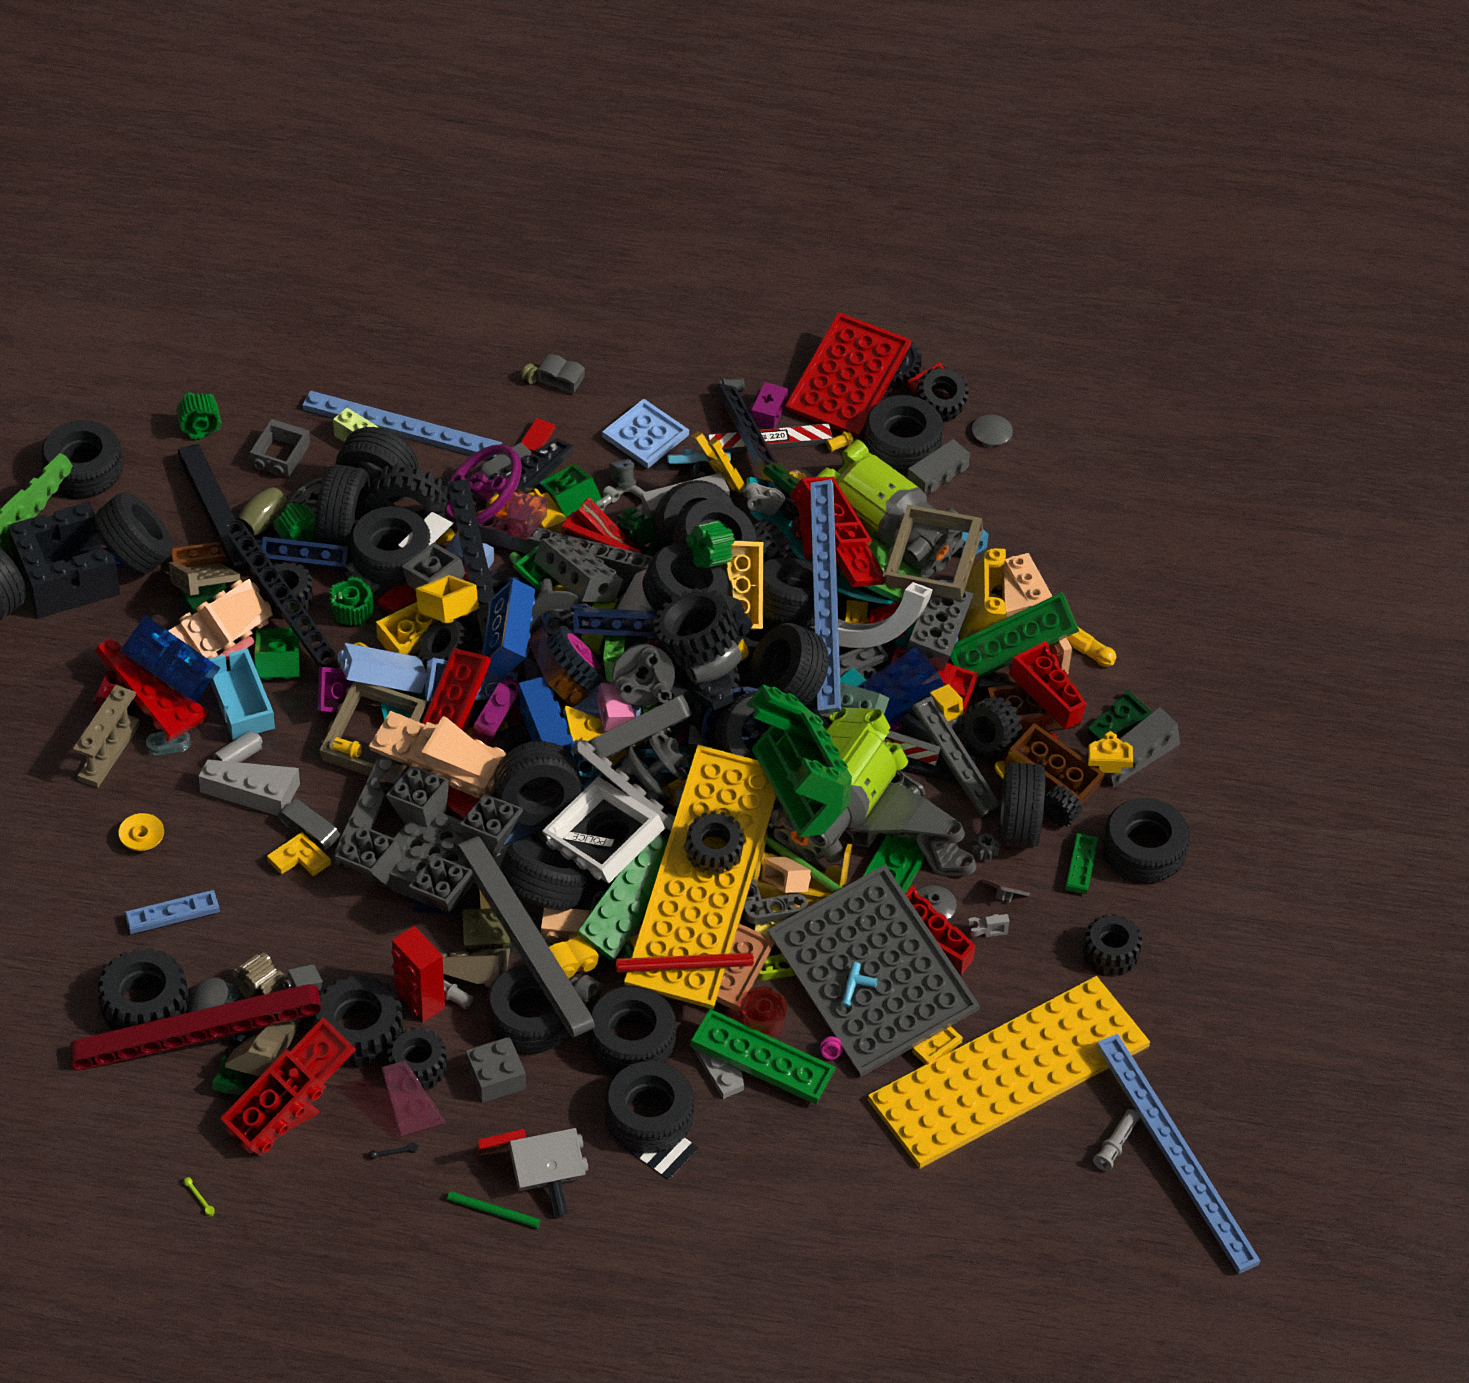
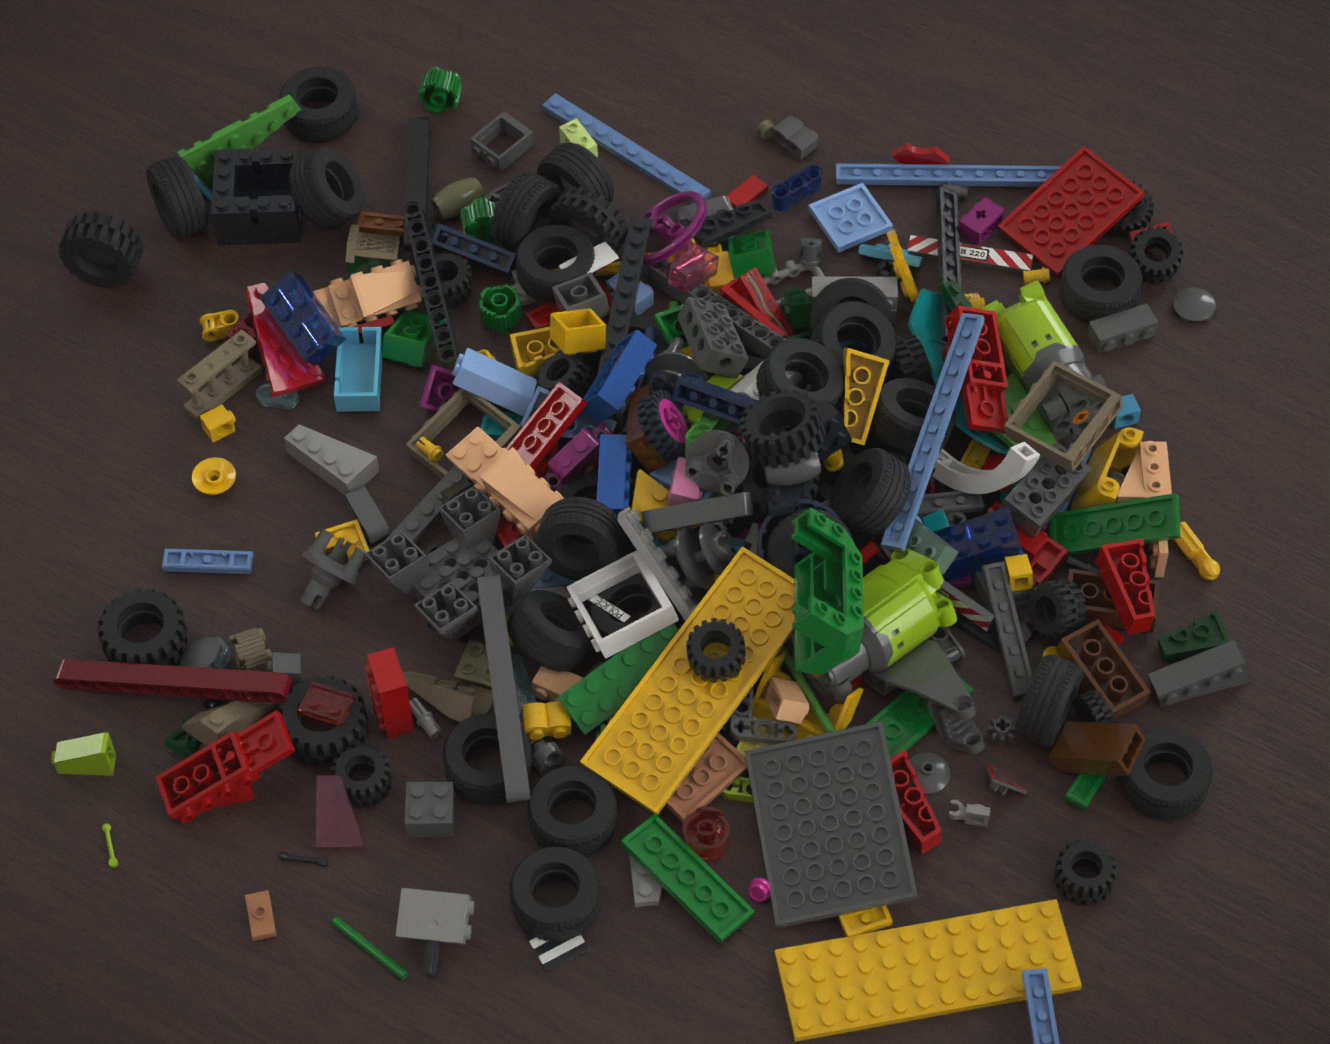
camera: 25 degrees right, 5 degrees up
(80, 691) = (219, 324): none -> yellow piece
(121, 782) = (218, 423): none -> yellow brick
(139, 1121) = (85, 756): none -> lime slope
(240, 748) = (336, 422): light grey brick -> none
(299, 884) = (329, 568): none -> dark grey piece
(361, 1001) = (326, 703): none -> clear red plate
(376, 1213) = (260, 915): none -> nougat plate
(497, 1142) = (397, 883): red tile -> none
(583, 419) = (796, 187): none -> clear blue beam
(684, 962) = (643, 761): red axle -> none
(695, 360) = (924, 156): none -> red tile
(710, 544) = (833, 349): green brick -> none
(712, 373) = (939, 174): none -> medium blue plate
(763, 498) = (926, 316): light grey piece -> none
(854, 979) = (806, 827): medium azure piece -> none
(1080, 834) = (1097, 748): none -> reddish brown brick
(1110, 754) = (1163, 673): yellow plate -> none

